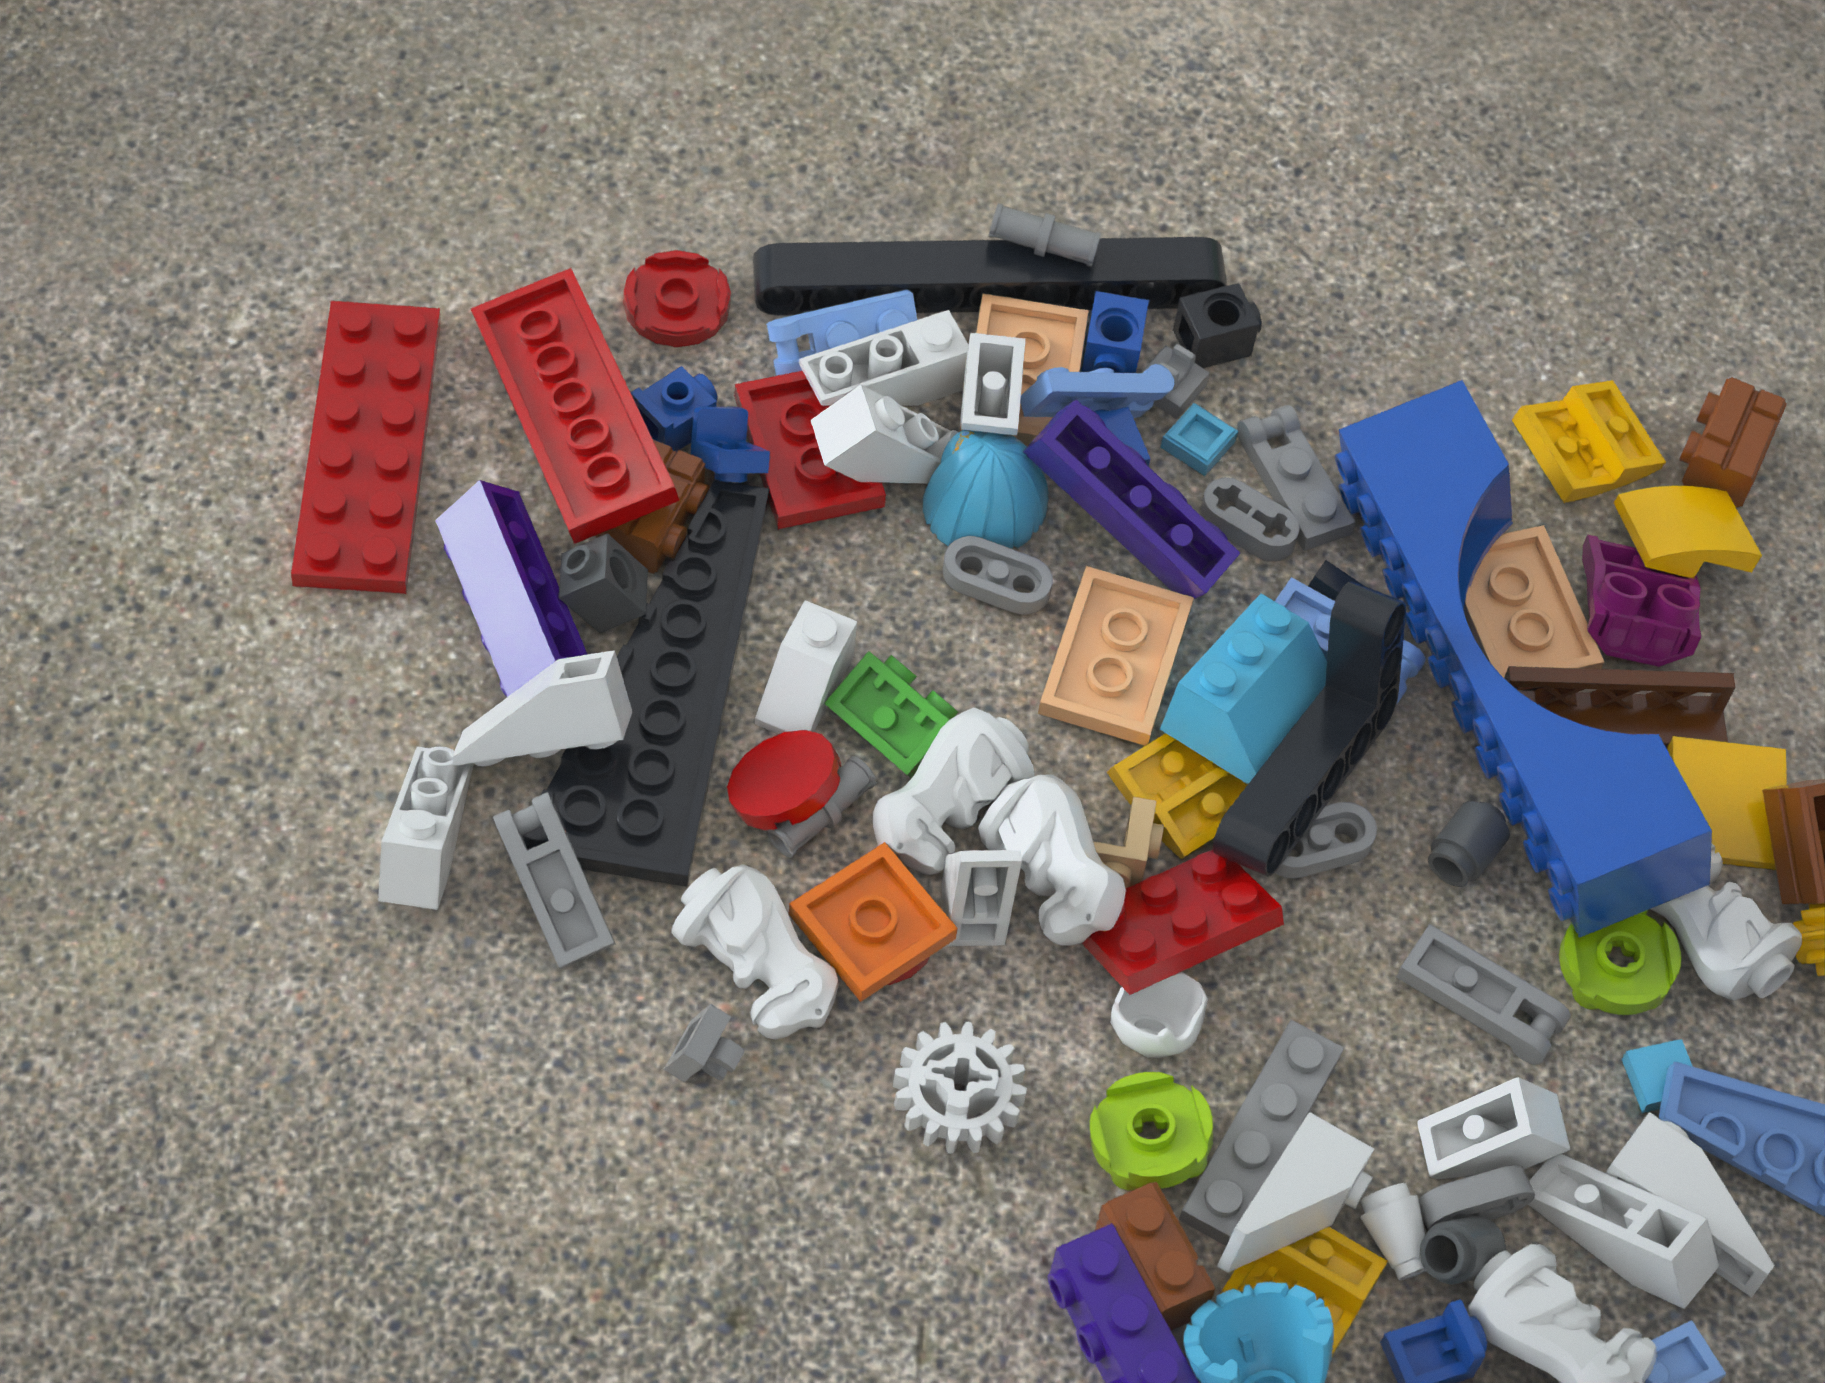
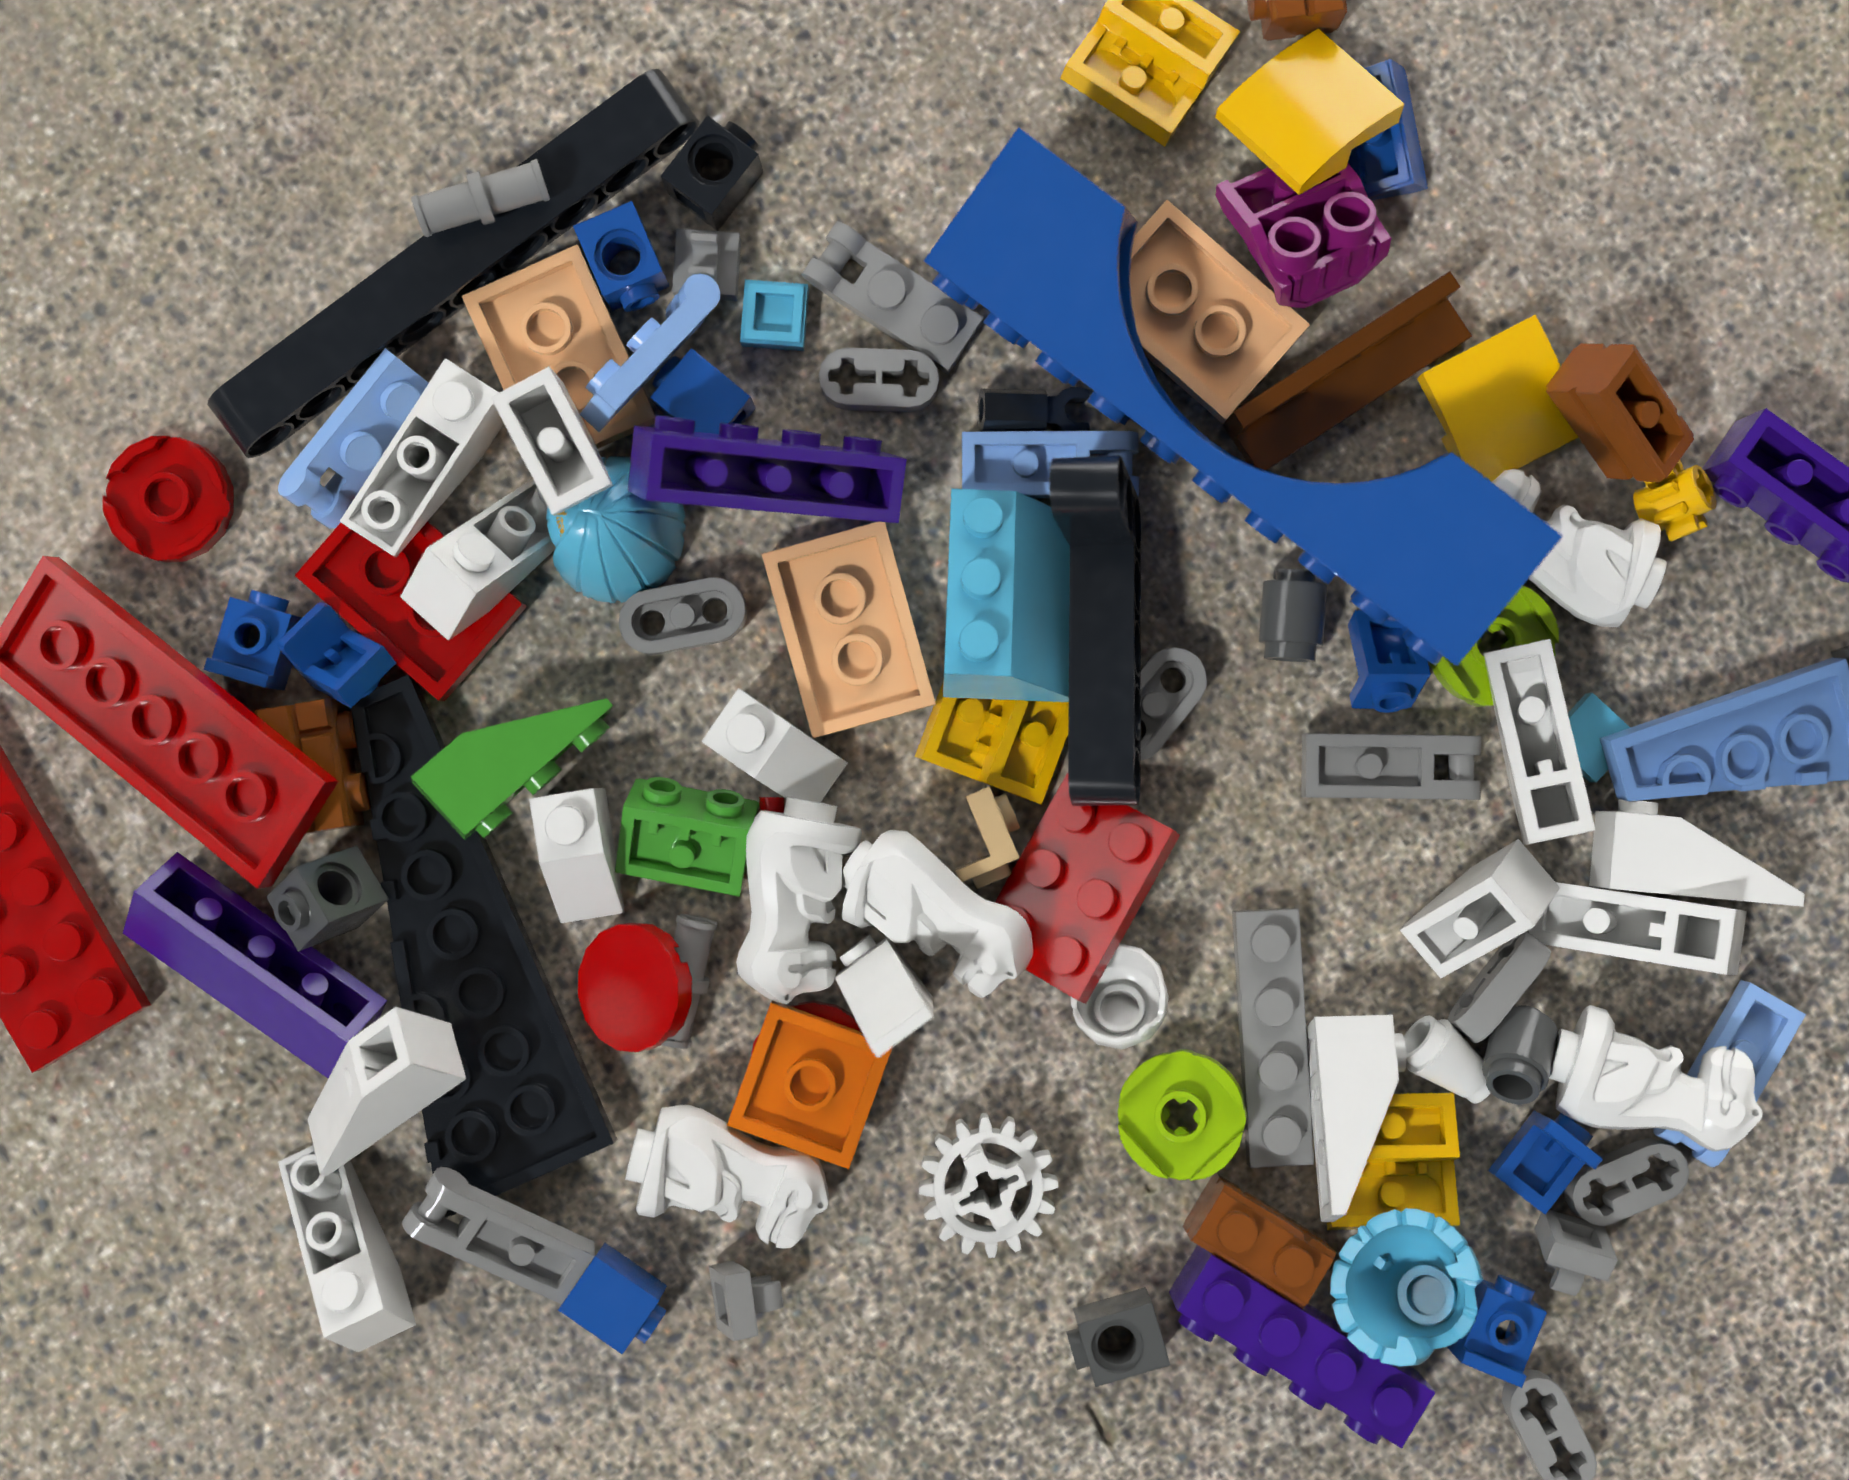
camera: 25 degrees left, 30 degrees up
(605, 985) = (616, 1300): none -> blue brick
(782, 566) = (492, 764): none -> bright green slope
(994, 1289) = (1140, 1355): none -> dark grey brick
(1003, 682) = (773, 750): none -> white slope
(1521, 921) = (1386, 666): none -> blue bracket
(1611, 1035) = (1538, 743): none -> white slope
(1736, 599) = (1393, 159): none -> blue slope

